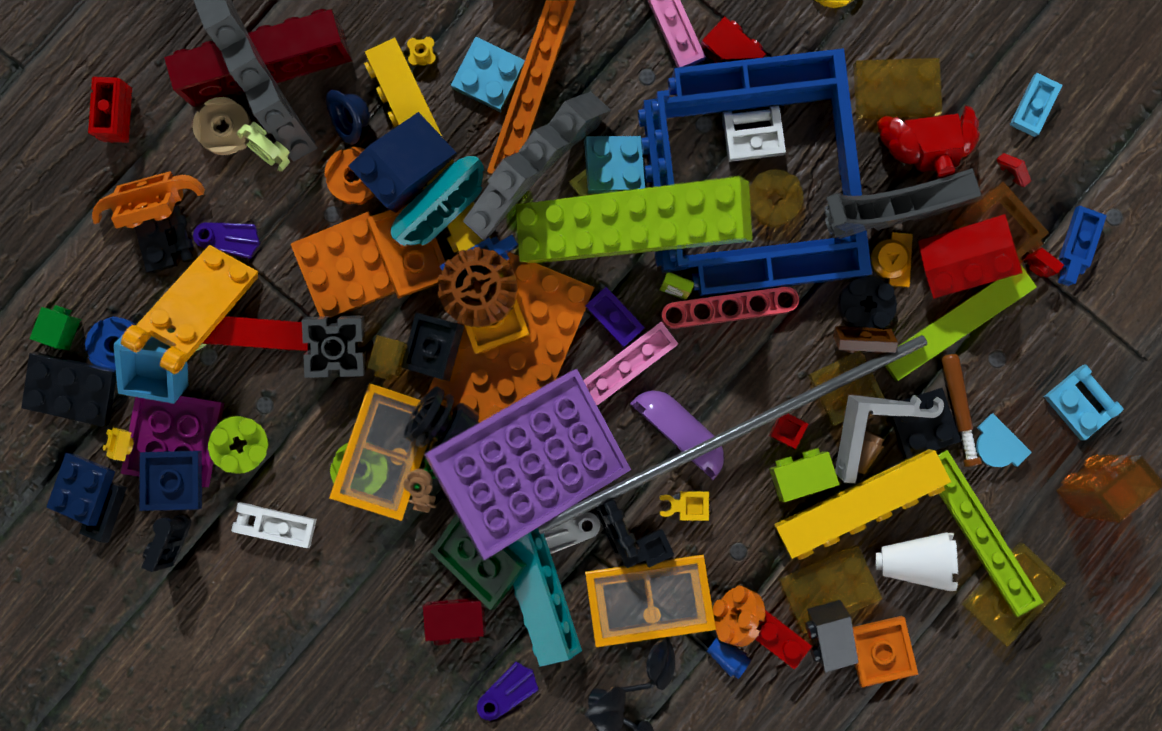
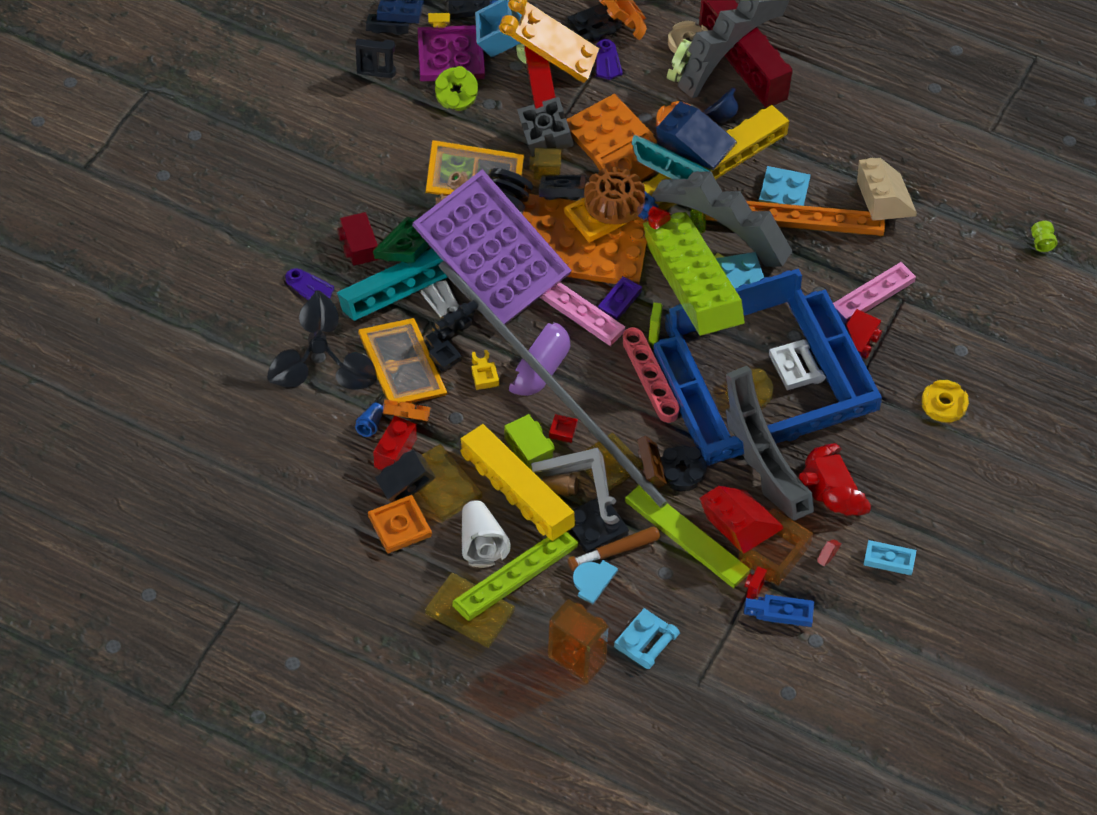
camera: 75 degrees right, 30 degrees down
(170, 480) = (420, 52): dark blue plate -> none
(274, 525) = (402, 122): white plate -> none
(424, 58) = (787, 145): yellow plate -> none
(527, 243) = (657, 217): none -> red tile
(893, 259) = (728, 477): light orange piece -> none
(897, 88) = (870, 459): clear yellow plate -> none

